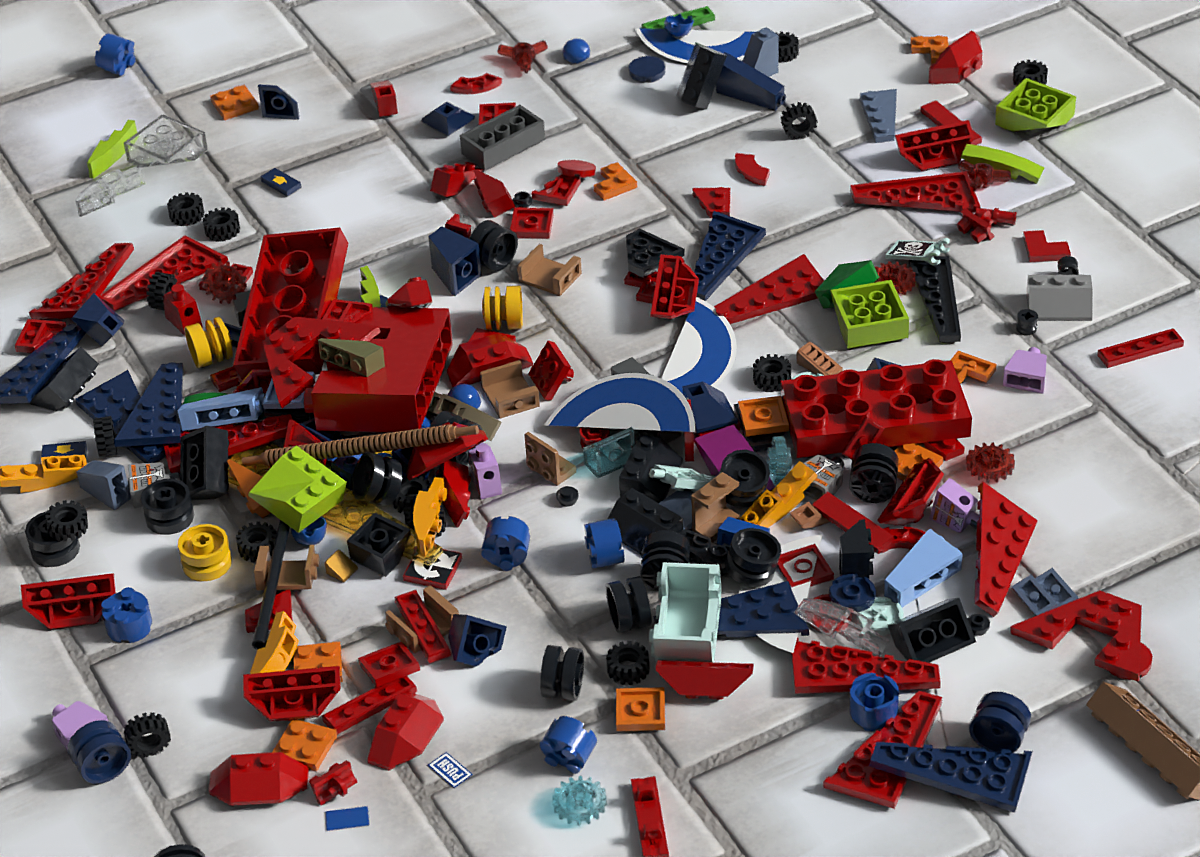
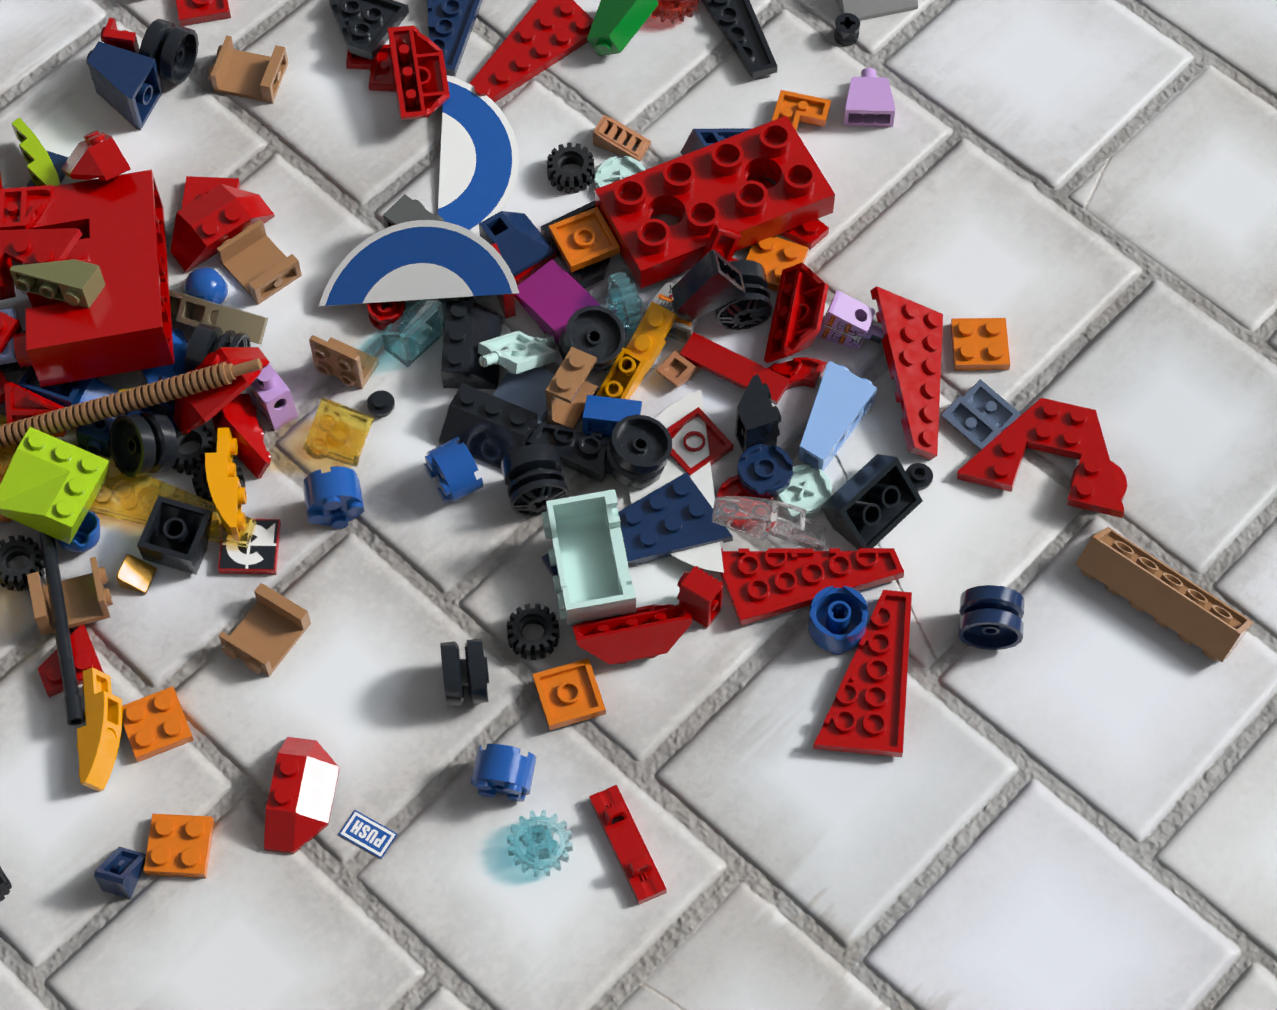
camera: 20 degrees left, 20 degrees up
(251, 744) = (120, 872): none -> dark blue slope
(258, 779) = (140, 916): red wedge -> none
(292, 692) = (143, 783): red wedge -> none
(333, 782) = (237, 895): red hips -> none
(347, 818) = (266, 935): blue sticker -> none
(367, 704) = (238, 765): red tile -> none
(389, 664) = (245, 705): red tile -> none
(423, 626) = (267, 638): red tile -> none
(474, 639) = (338, 644): dark blue slope -> none
(503, 308) = (213, 144): yellow wheel -> none
(527, 504) = (337, 433): none -> clear yellow slope
(550, 370) = (308, 229): red plate -> none
(628, 604) = (511, 553): black wheel -> none
(768, 661) = (701, 595): none -> red brick
(844, 453) = (707, 287): none -> black slope
(870, 314) = (663, 58): lime slope -> none
(965, 771) = (969, 690): dark blue wing -> none
(990, 462) = (865, 244): clear red gear -> none
(1062, 547) = (980, 344): none -> orange plate
(1140, 348) = (985, 38): red tile -> none

